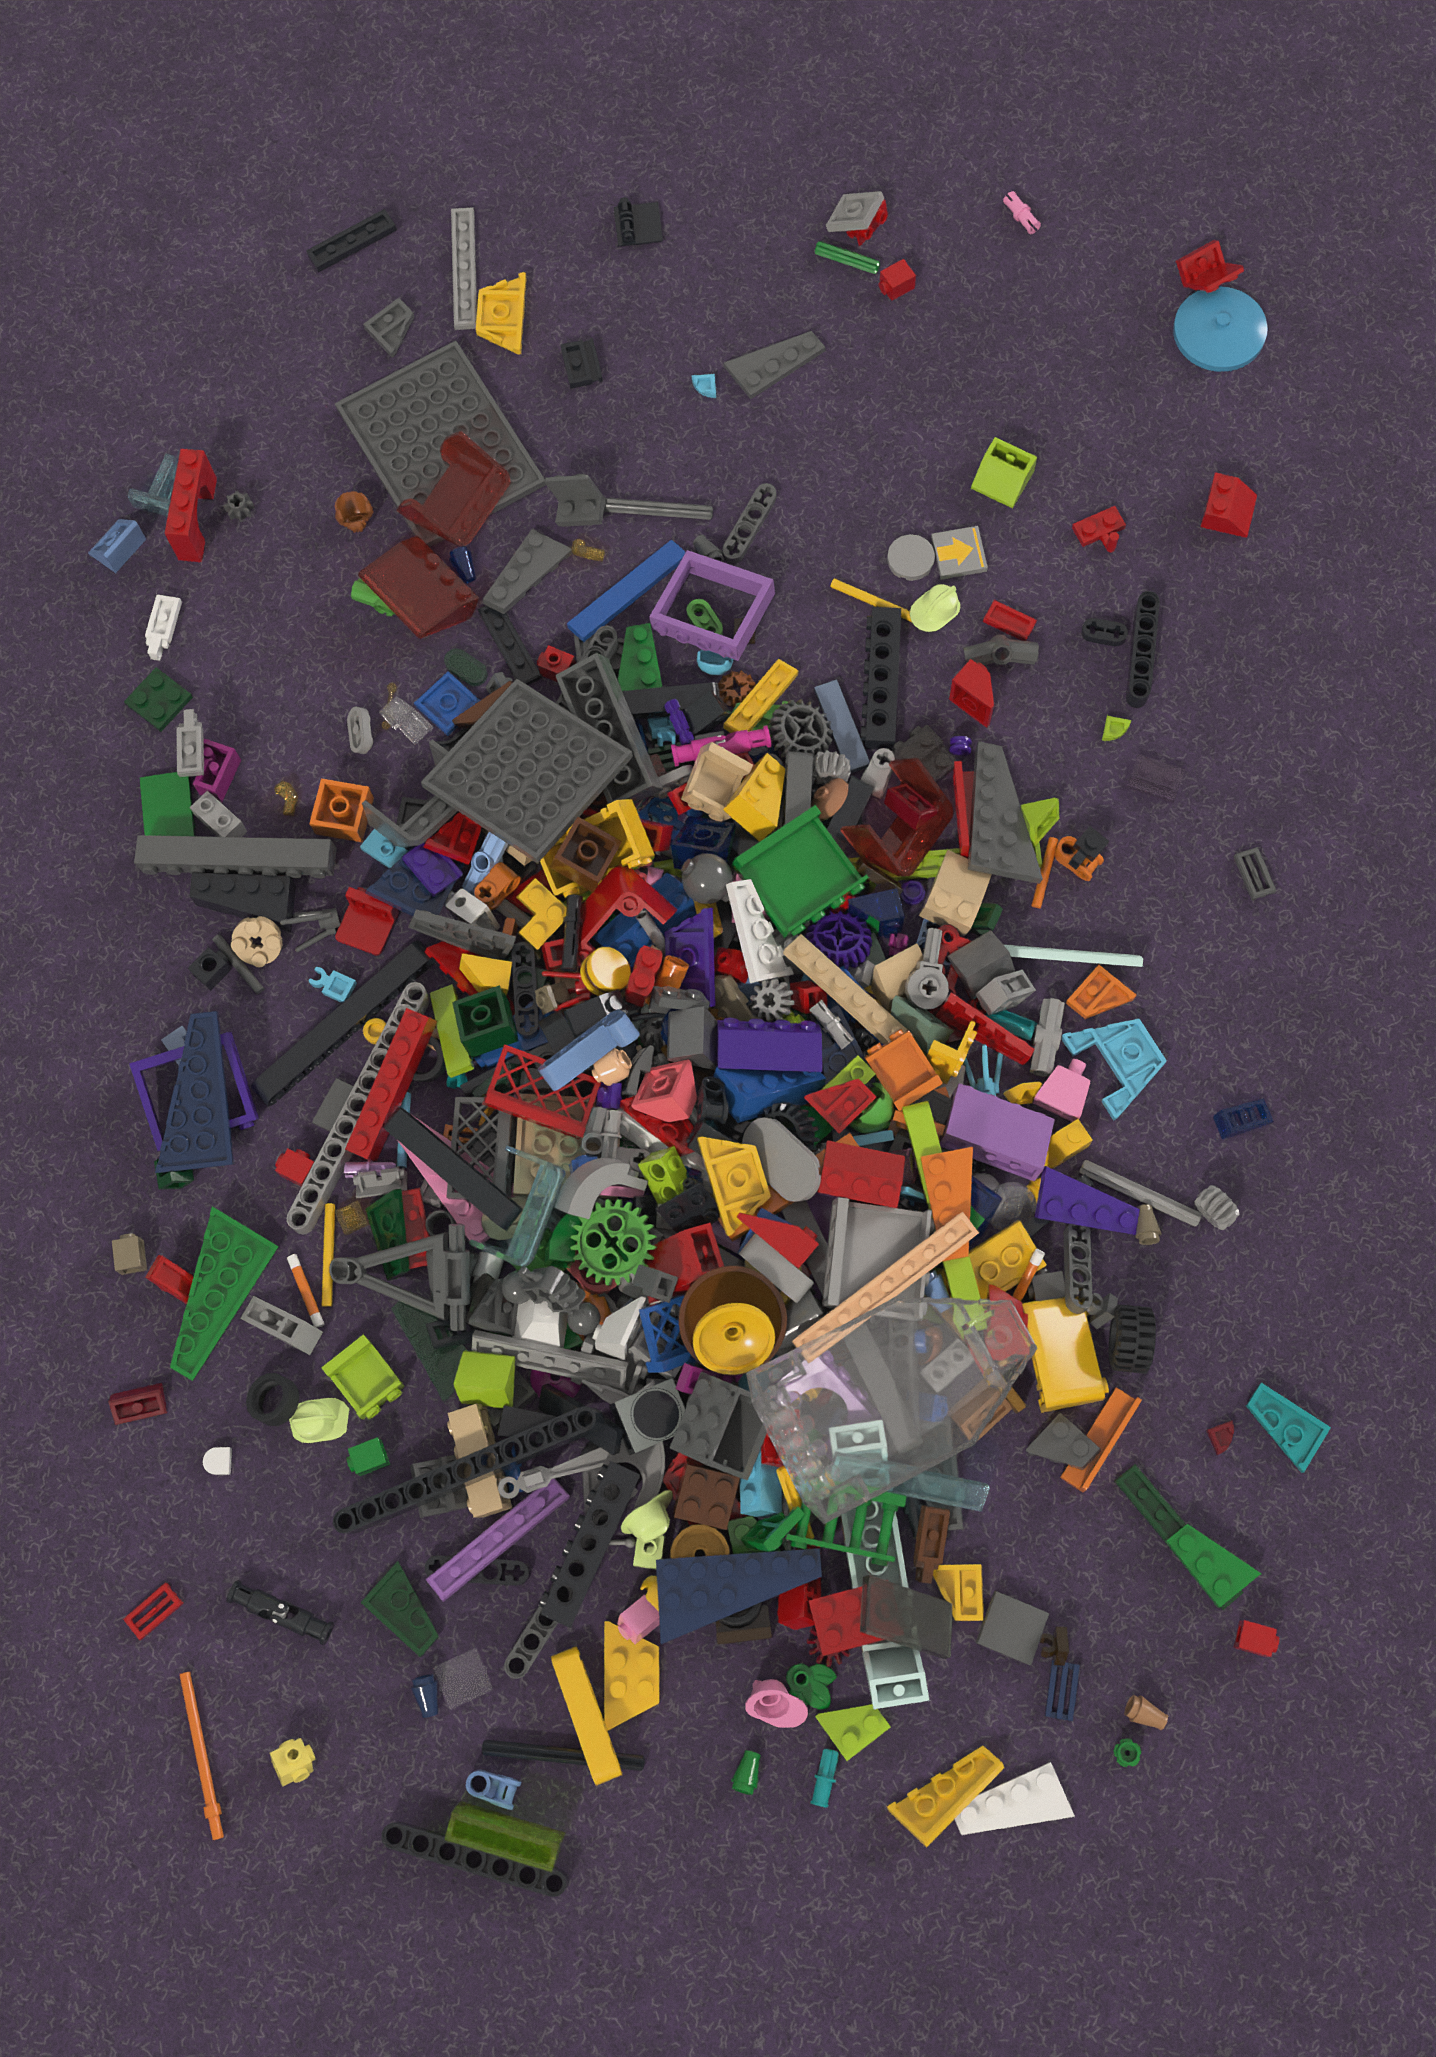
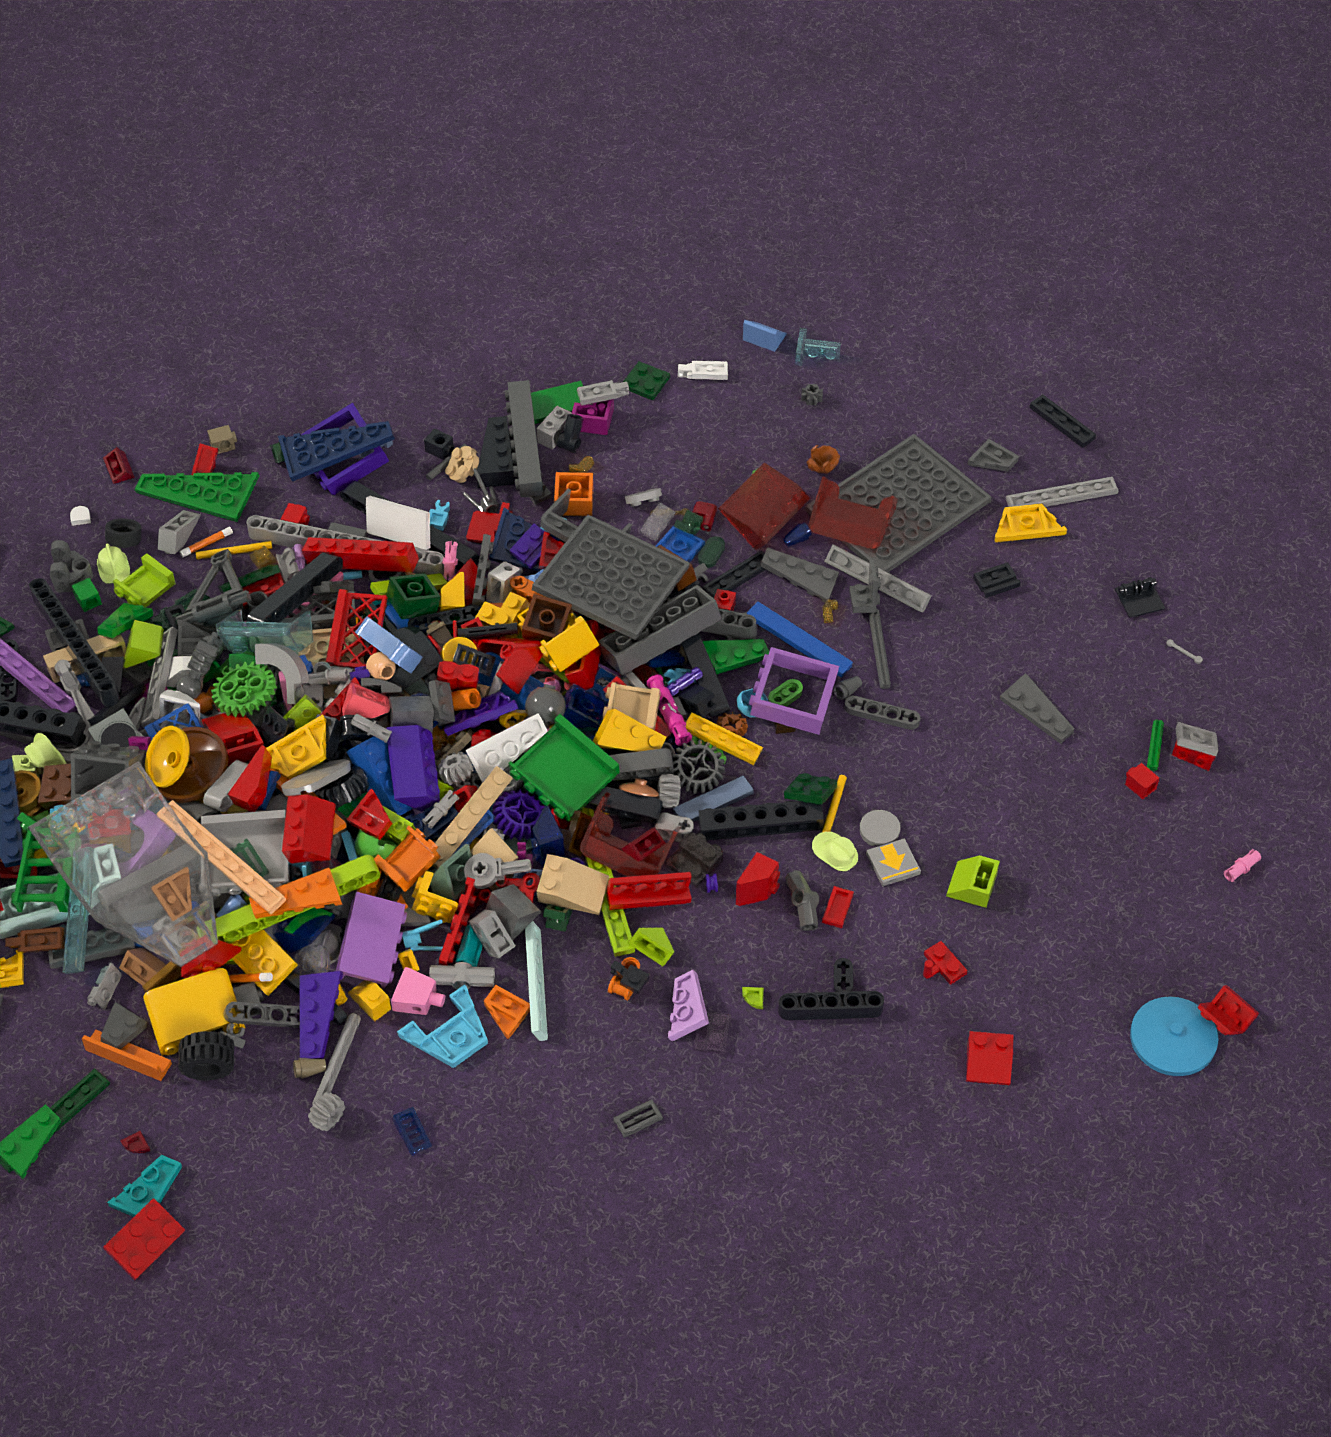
camera: 75 degrees right, 20 degrees down
(192, 481) = (779, 354): red arch -> none
(240, 801) = (569, 438): none -> black piece
(337, 1485) = (65, 561): none -> dark grey piece
(350, 1029) = (398, 522): none -> white tile
(402, 661) = (708, 511): none -> dark red piece
(419, 684) = (690, 523): none -> clear green bracket
(423, 974) = (450, 560): none -> bright pink pin
(432, 1404) = (123, 619): none -> green wing
(442, 1121) = (333, 587): none -> dark grey hinge
(541, 498) = (890, 584): none -> light grey tile
(614, 967) = (476, 653): none -> black slope
(655, 1283) = (211, 711): dark grey brick -> none
(705, 384) = (1003, 666): medium azure tile -> none
(725, 1081) = (371, 727): none -> light grey axle
(734, 189) = (1197, 659): none -> light grey hinge
(854, 615) = (810, 788): none -> dark green plate
(911, 1245) = (240, 848): none -> clear green tile
(937, 1346) = (174, 894): none -> medium nougat wing
(998, 828) = (623, 911): dark grey wing -> none
(1009, 1467) = (107, 984): none -> light grey hinge
(1045, 871) = (599, 959): orange bar -> none
(1123, 796) = (689, 1006): none -> lavender wing
(1355, 1431) = (143, 1239): none -> red plate

